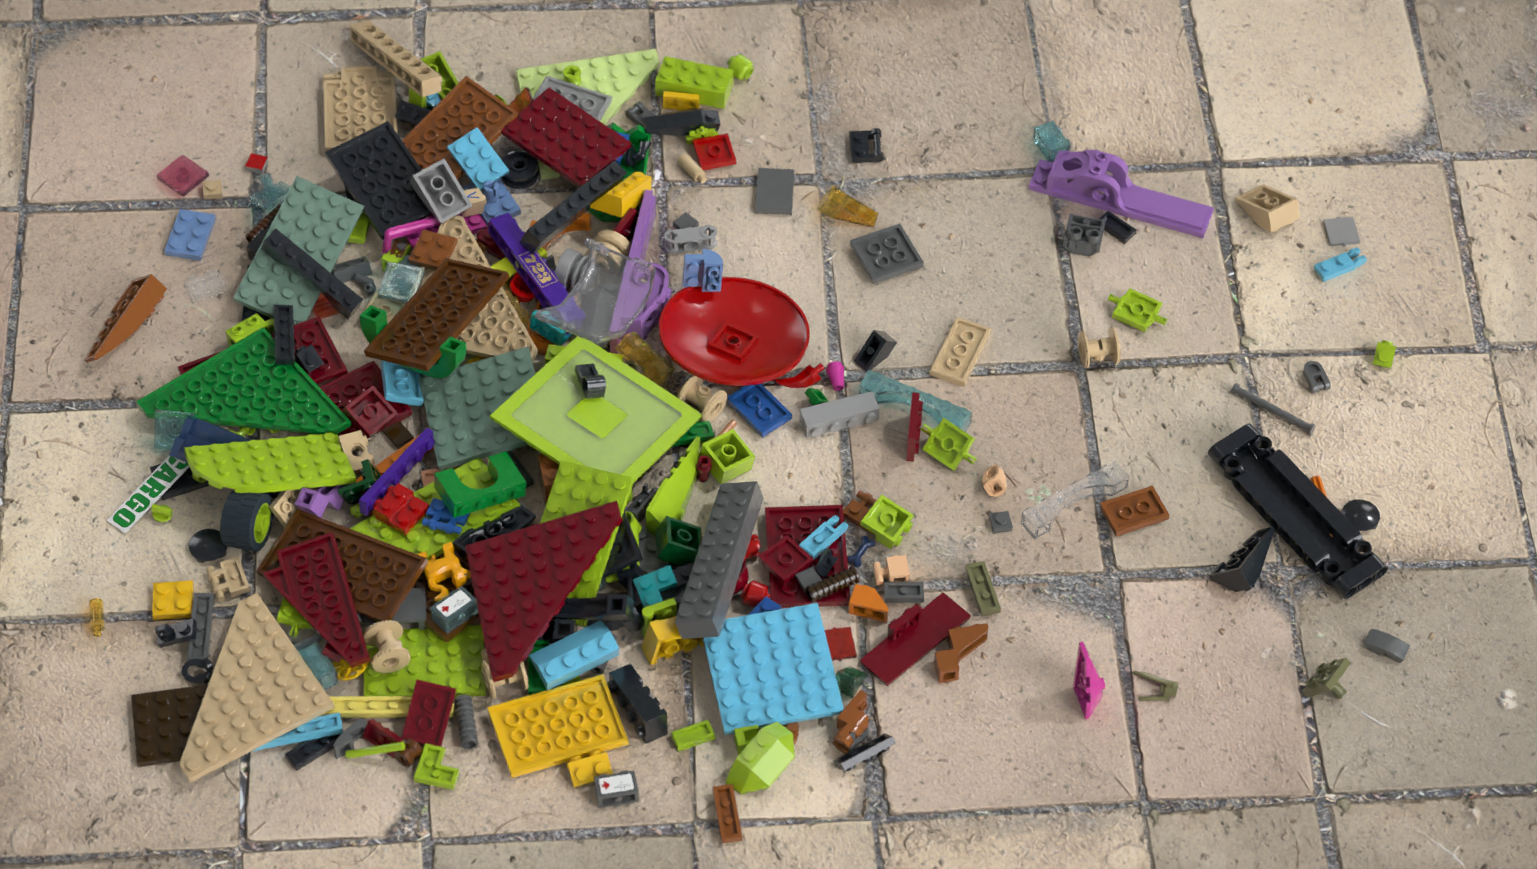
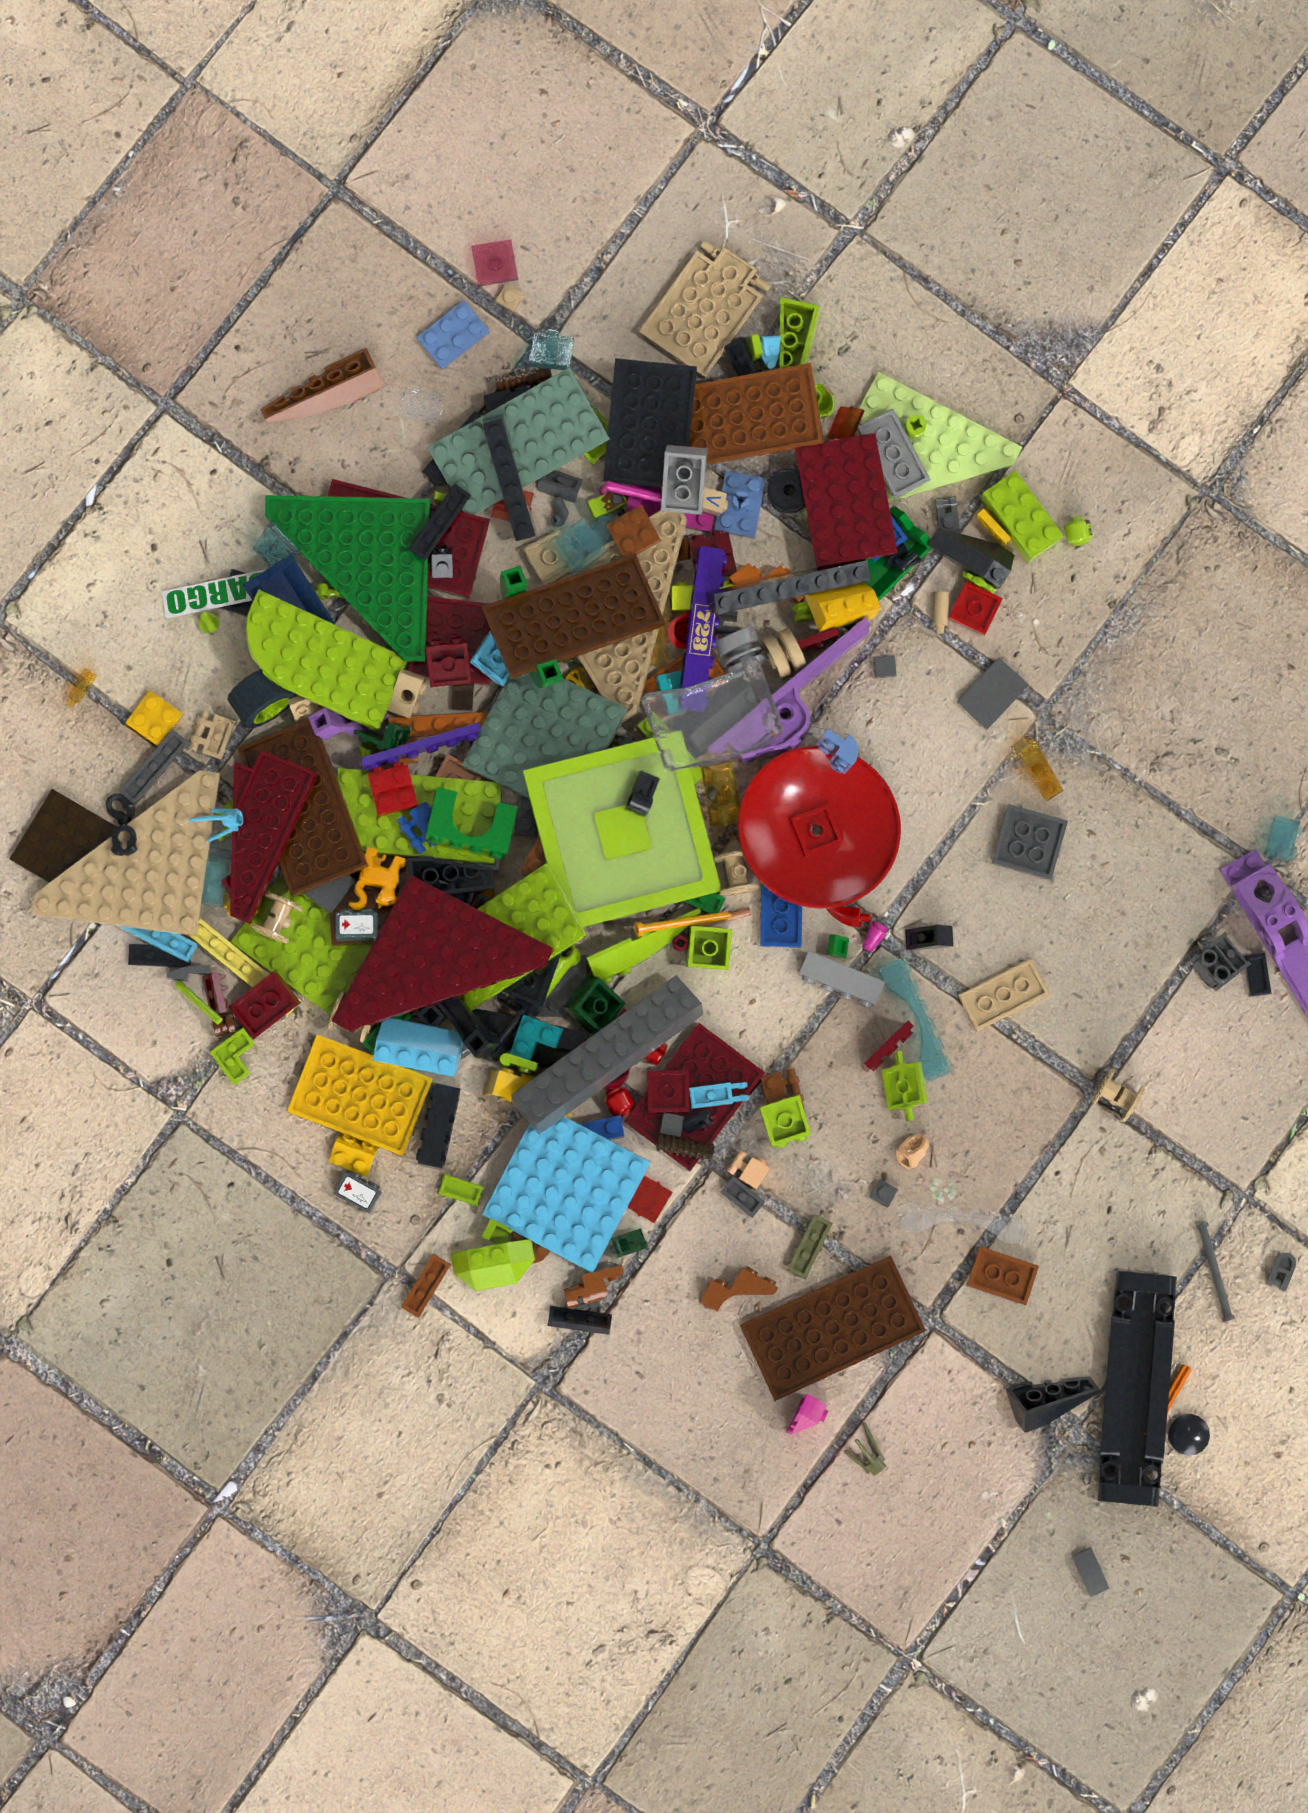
camera: 35 degrees right, 30 degrees up
(176, 633) = (130, 757): black hinge -> none
(207, 545) = (219, 683): black dish -> none
(218, 685) = (117, 844): none -> black piece
(244, 329) = (414, 488): lime bracket -> none
(256, 163) = (569, 298): red tile -> none
(293, 602) = (231, 819): none -> medium azure plant
(395, 58) = (771, 222): tan brick -> none
(466, 721) = (291, 1032): dark grey piece -> none
(477, 158) = (751, 461): medium azure plate -> none
(595, 225) = (802, 612): none -> lime wheel
(640, 504) = (602, 934): dark grey hinge -> none
(667, 466) = (641, 928): none -> light orange bar
(690, 239) = (872, 690): light grey piece -> none
(860, 149) = (1110, 704): black plate -> none
(865, 544) = (733, 1131): dark blue piece -> none
(868, 603) = (703, 1183): orange slope -> none
(913, 637) = (714, 1247): dark red bracket -> none
(1047, 625) = (832, 1328): none -> reddish brown plate
(1137, 310) = (1192, 1078): lime plate -> none
(1327, 679) = (1006, 1566): olive plate -> none

